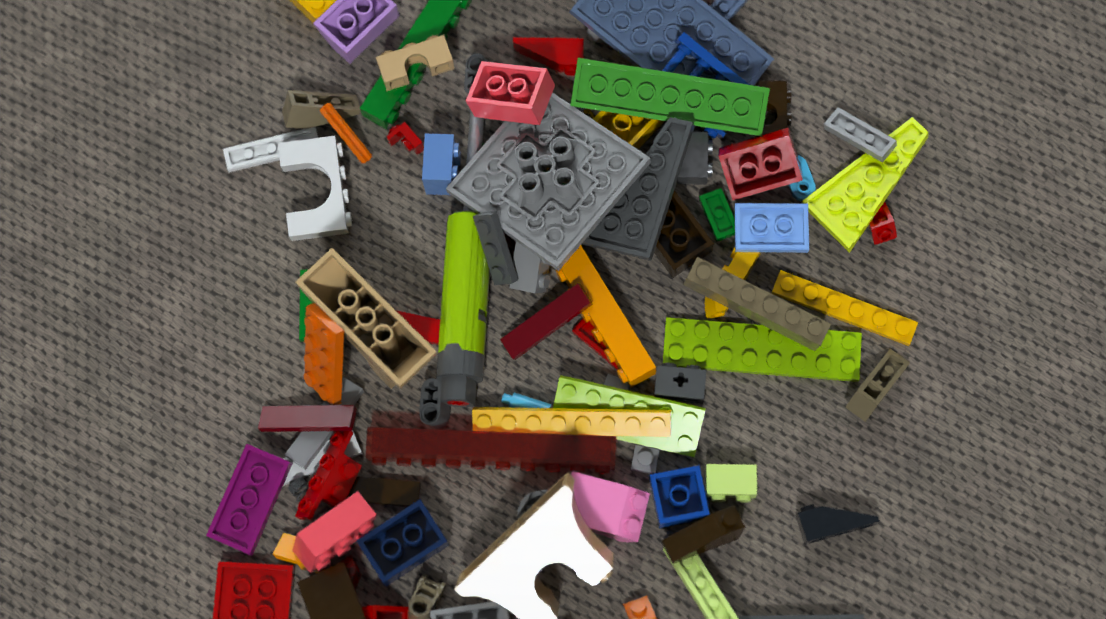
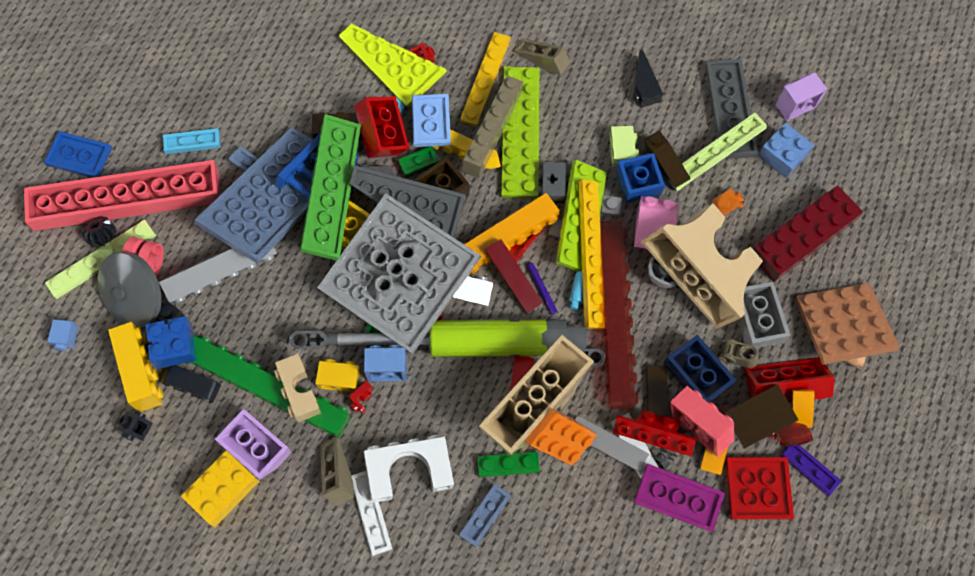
camera: 100 degrees left, 5 degrees down
(254, 274) = (485, 515): none -> sand blue plate
(307, 418) = (608, 456): tile -> none
(345, 133) = (358, 445): orange axle -> none
(434, 111) = (338, 376): none -> yellow brick
(495, 248) = (460, 310): dark grey plate -> none
(510, 93) = (329, 302): coral brick -> none
(533, 361) = (542, 289): none -> dark purple bar
(555, 53) = (286, 282): red slope -> none
(860, 134) = (354, 67): light grey plate -> none

